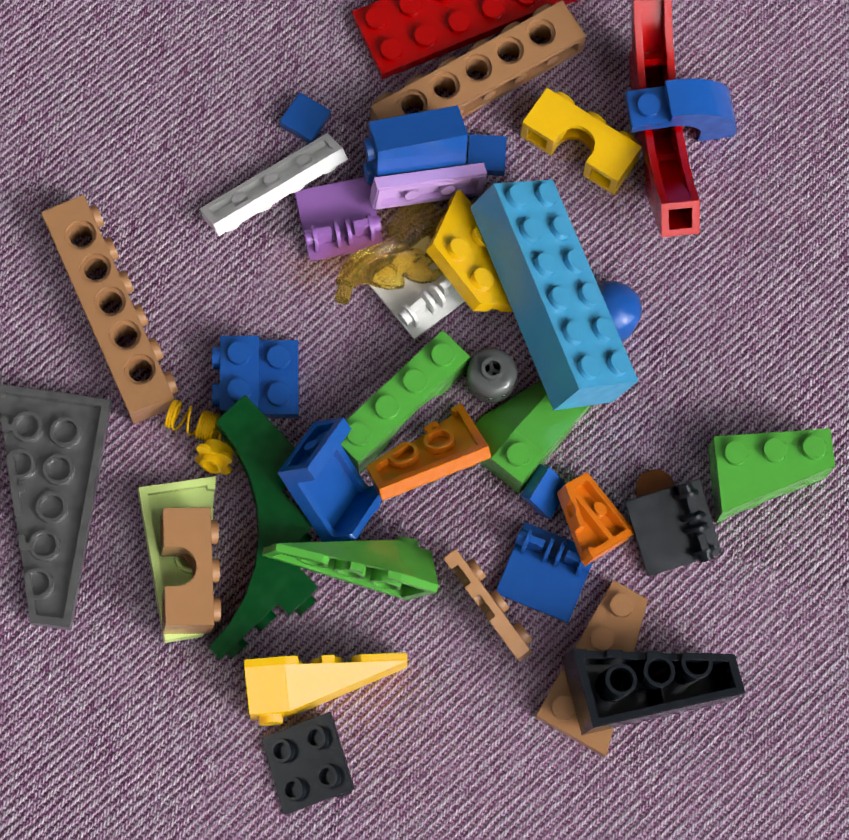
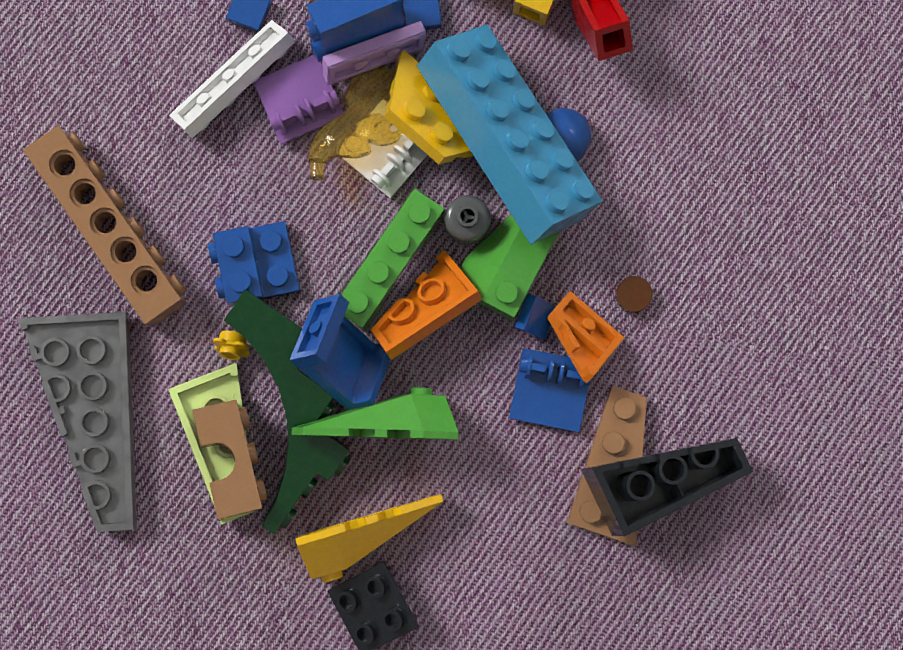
camera: 10 degrees left, 10 degrees up
(205, 427) = (216, 317): yellow piece -> none
(491, 604) = (532, 456): medium nougat wing -> none
(673, 527) = (658, 327): black hinge -> none
(765, 466) = (727, 255): bright green wedge -> none

